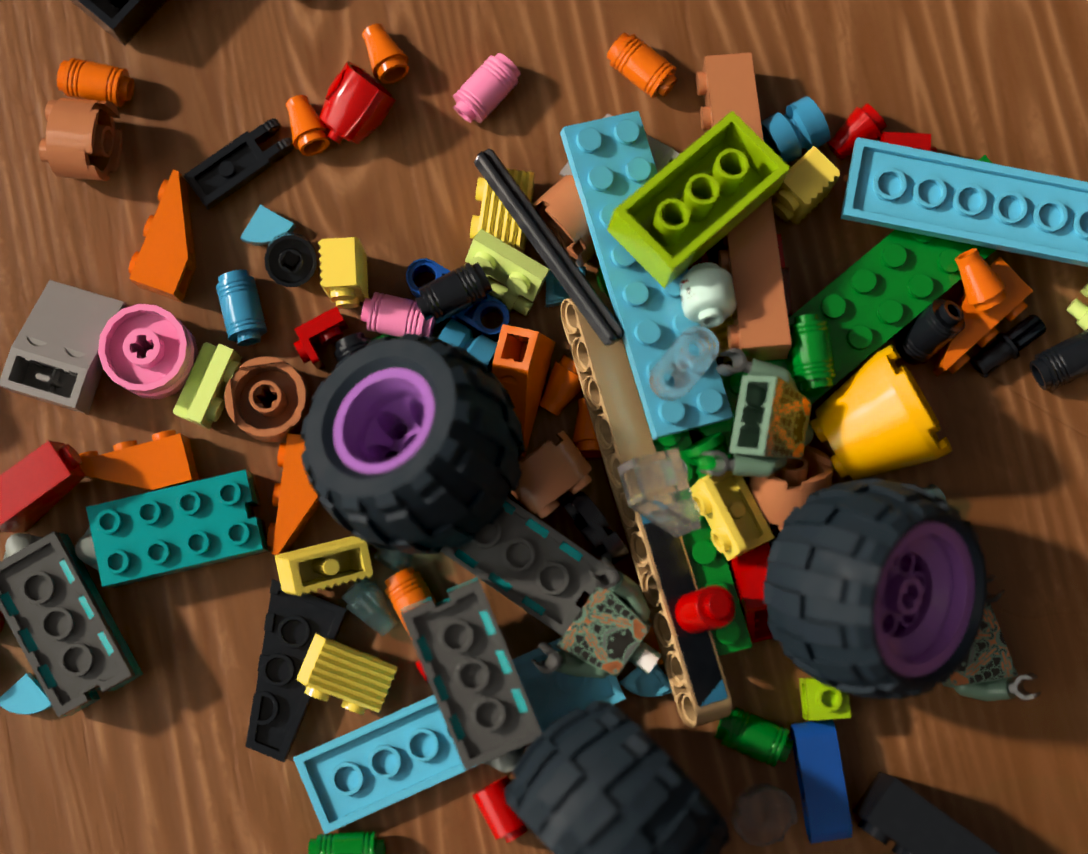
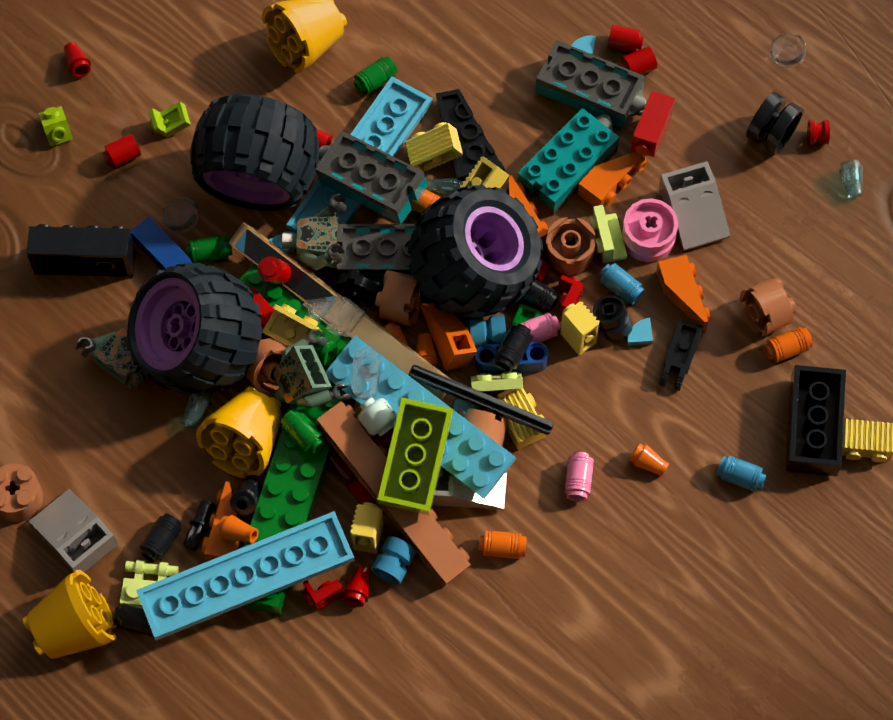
camera: 145 degrees right, 15 degrees down
(307, 129) = (660, 395): orange cone -> none
(354, 105) = (639, 414): red helmet -> none

